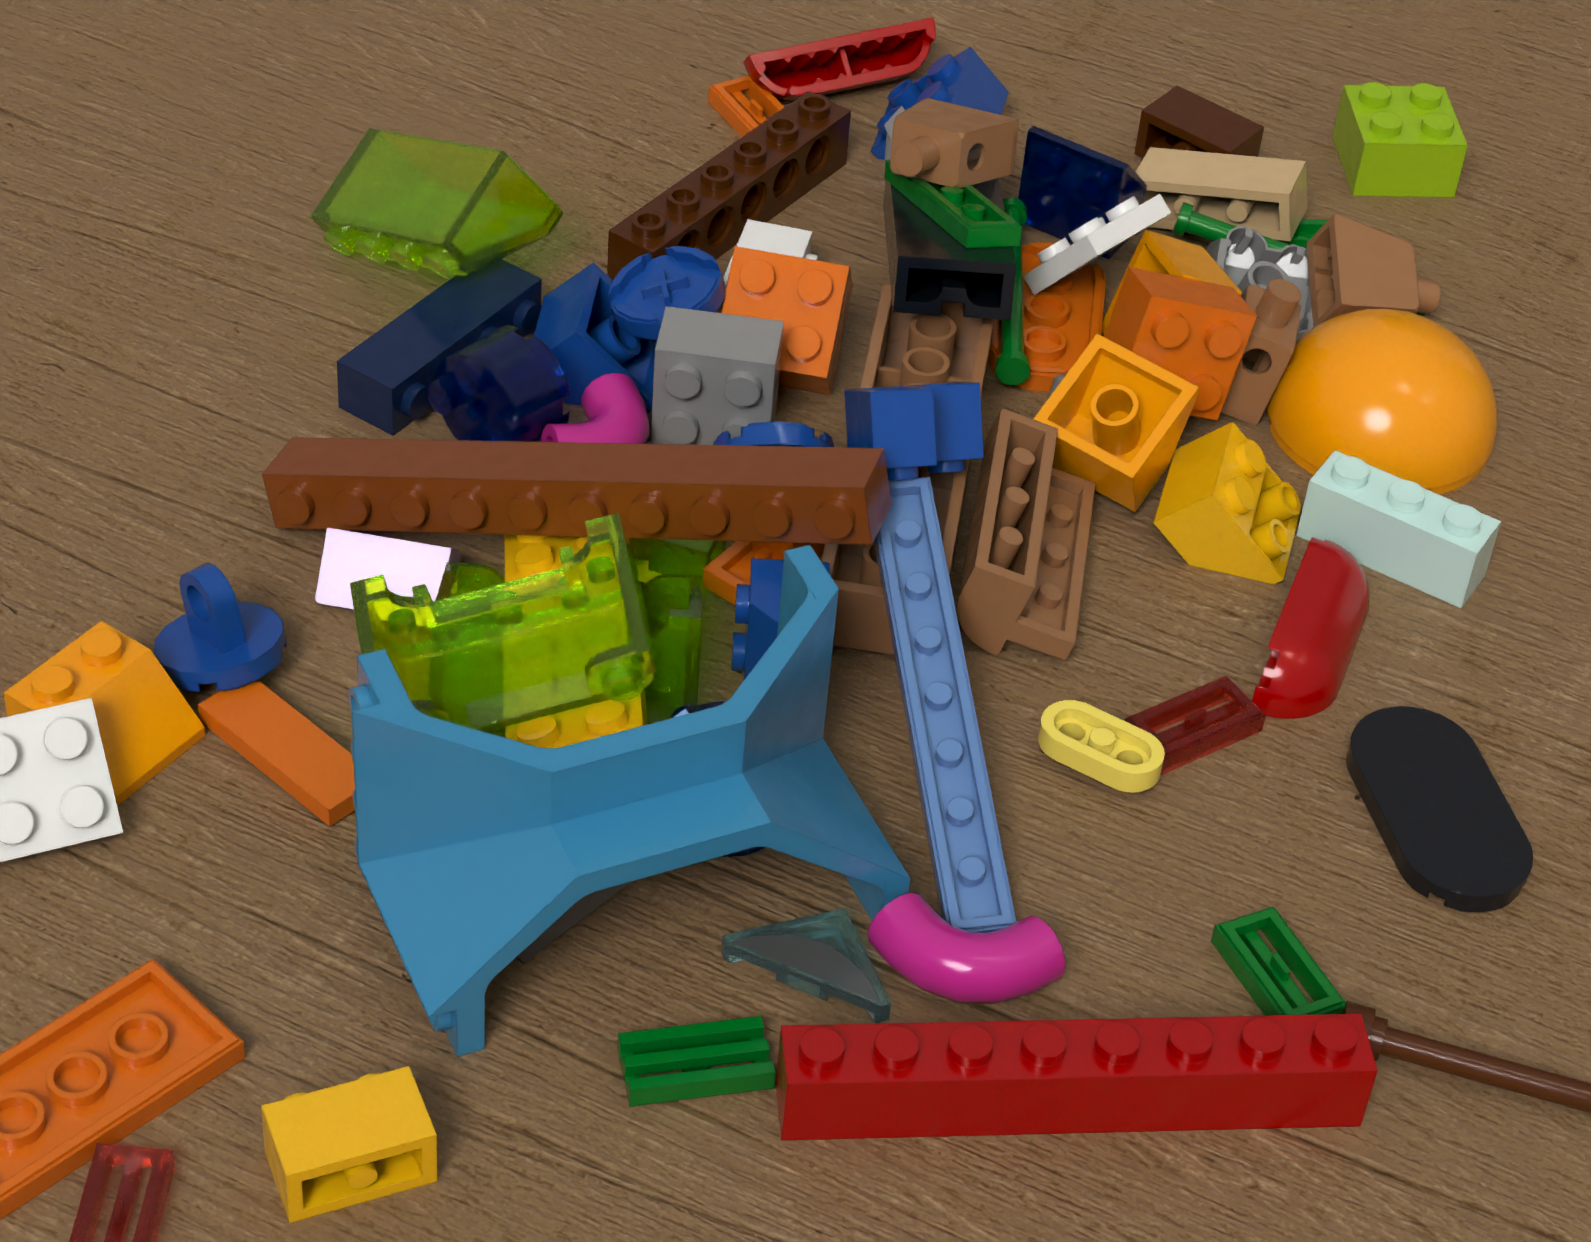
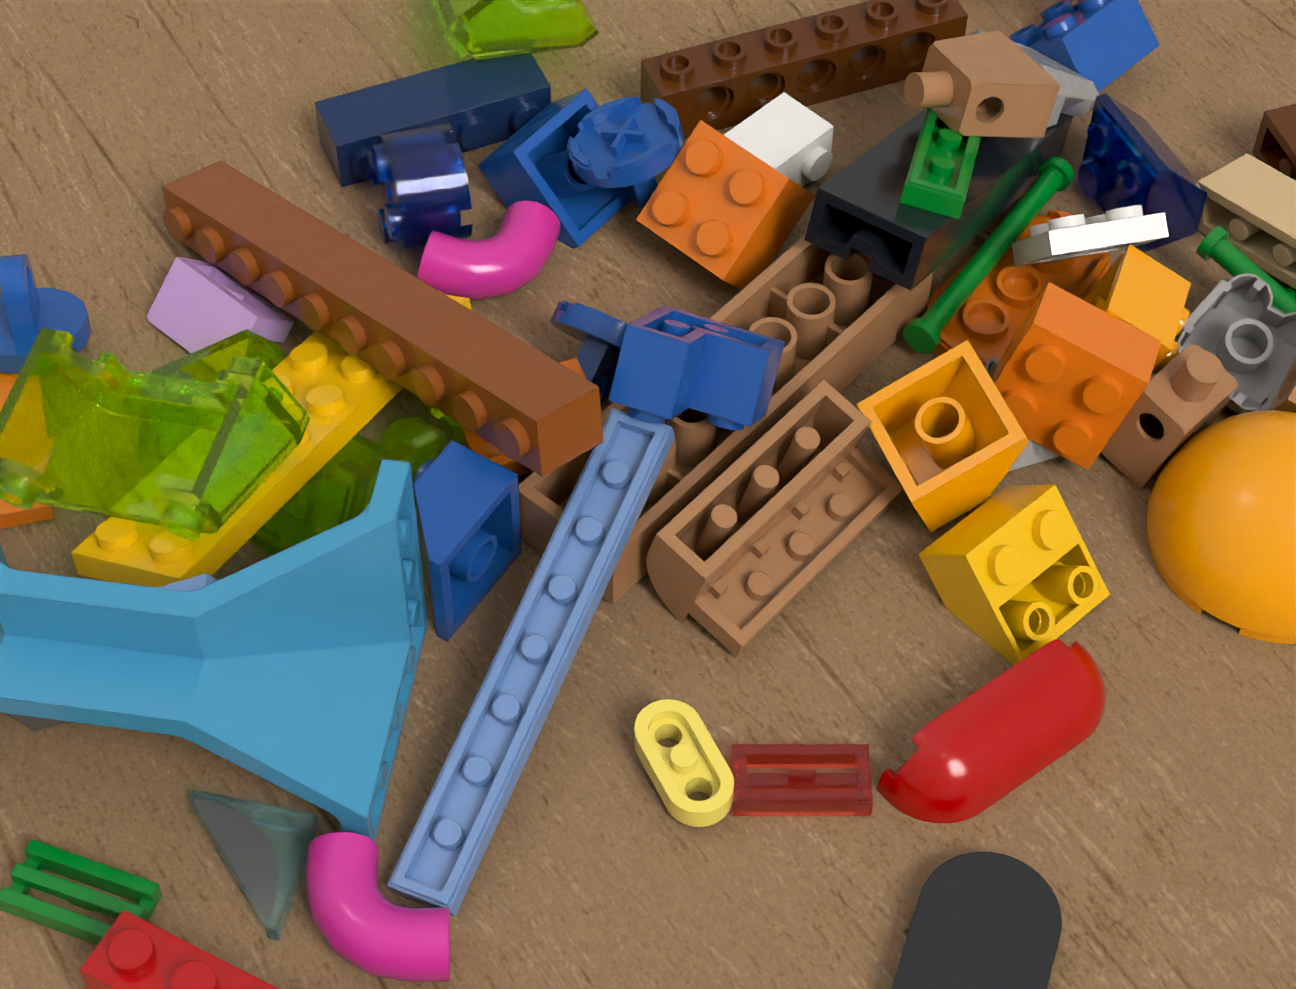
camera: 35 degrees right, 10 degrees up
(713, 375) = (616, 243): light grey brick -> none
(1399, 528) = (1172, 666): light aqua brick -> none

